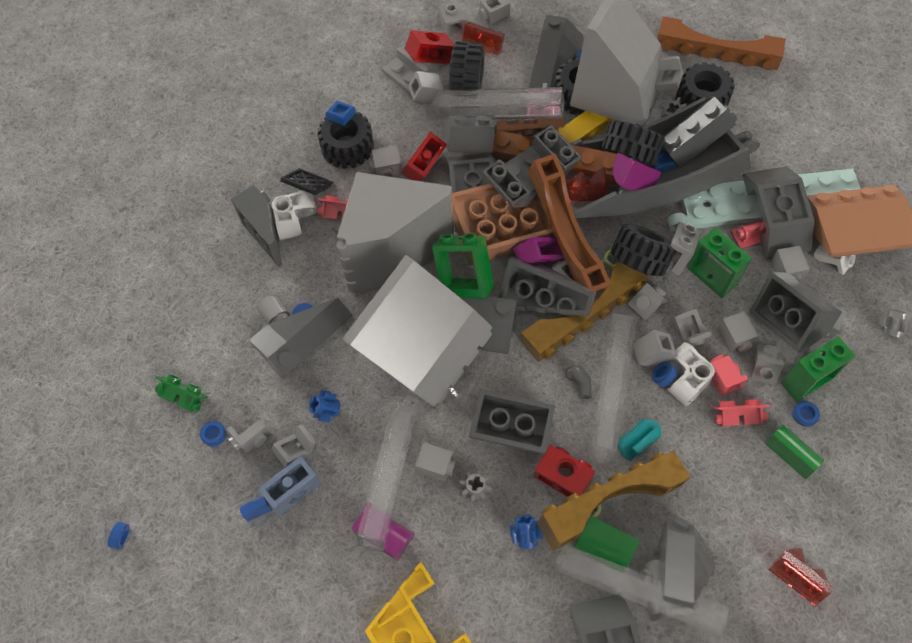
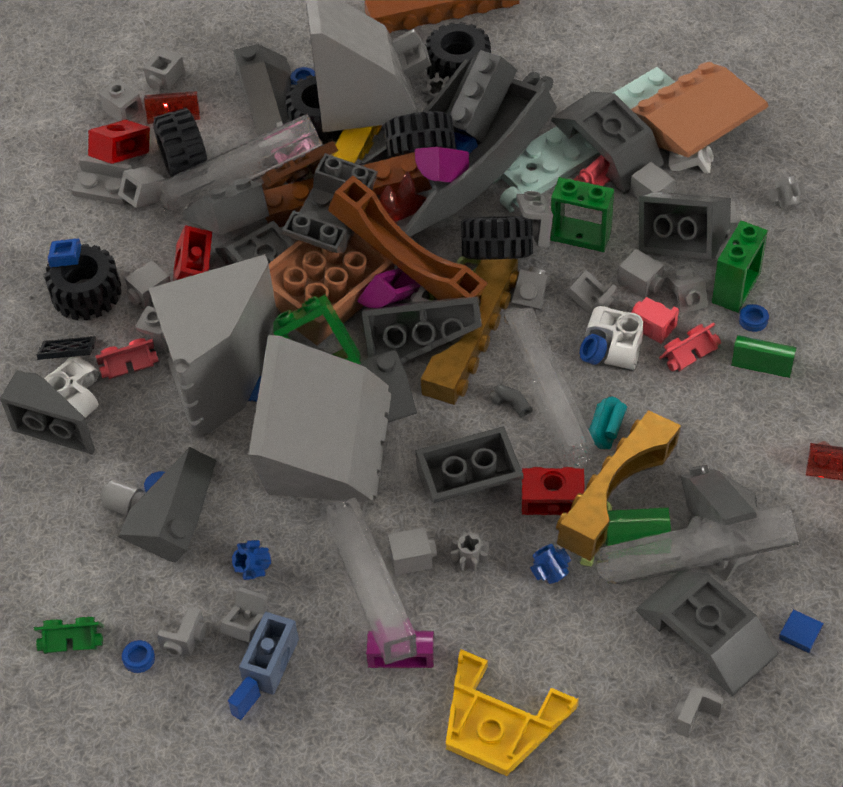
camera: 30 degrees left, 10 degrees down
(654, 349) = (568, 329): light grey brick -> none

